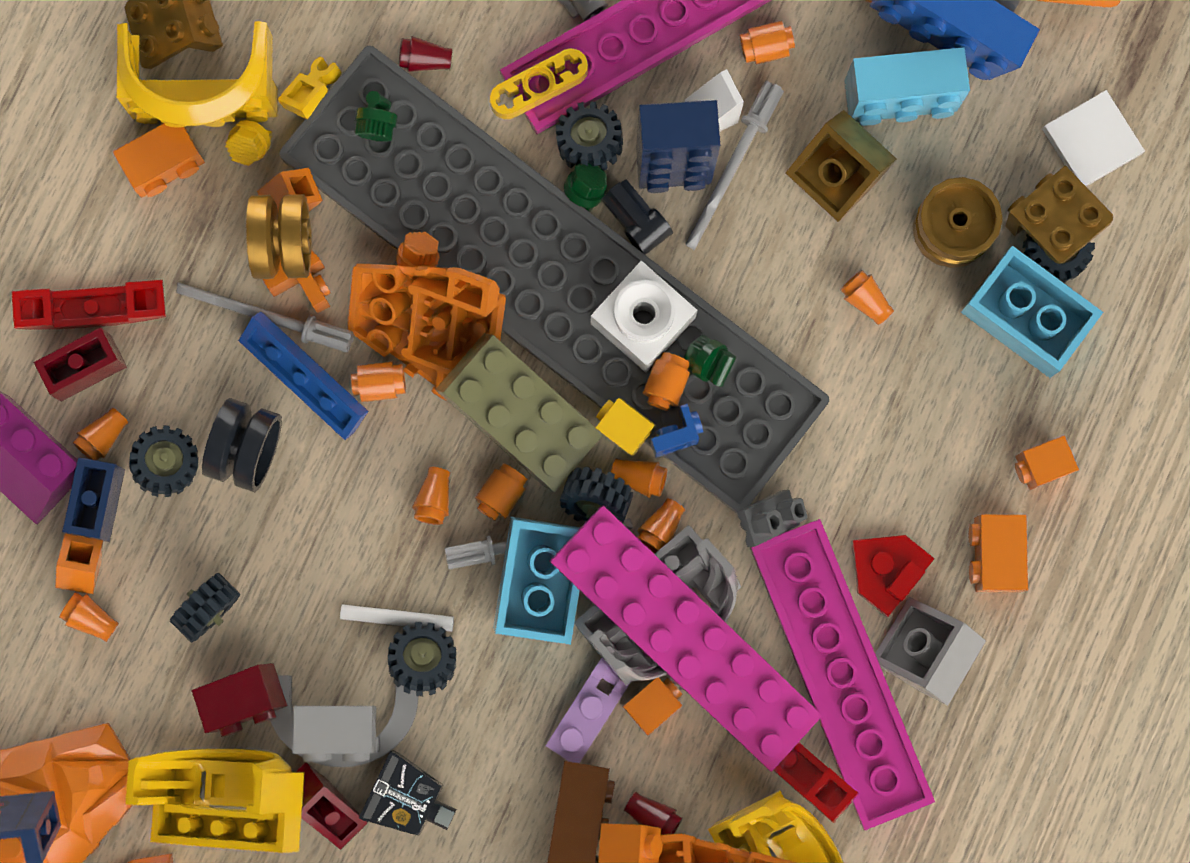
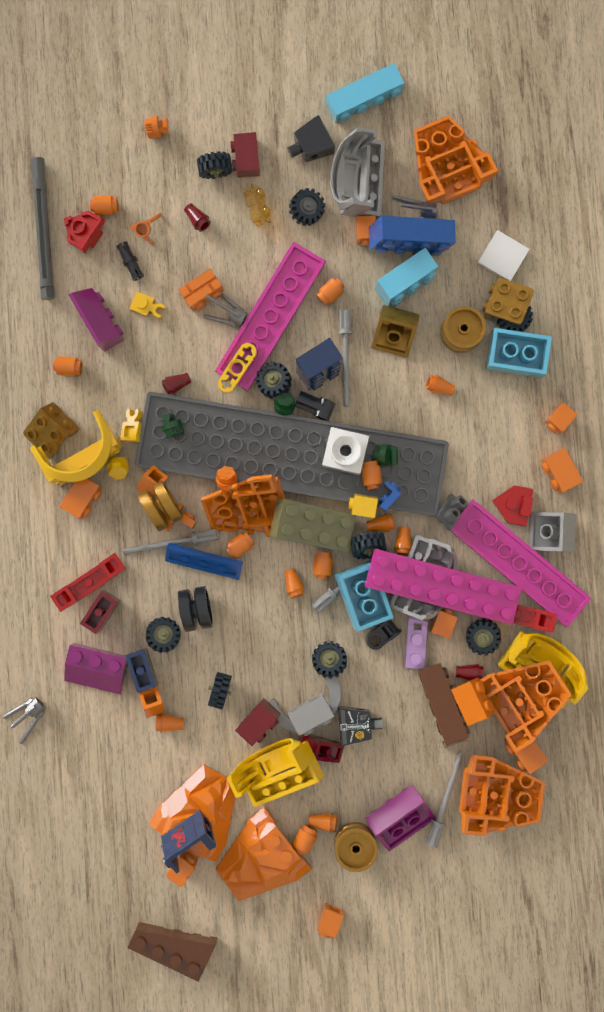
camera: 30 degrees left, 5 degrees up
(99, 436) = (126, 640): orange cone -> none
(394, 617) = (306, 647): white bar -> none
(541, 665) = (384, 634): none -> black piece
(709, 766) = (483, 637): none -> black wheel
(727, 96) = (322, 332): white slope -> none

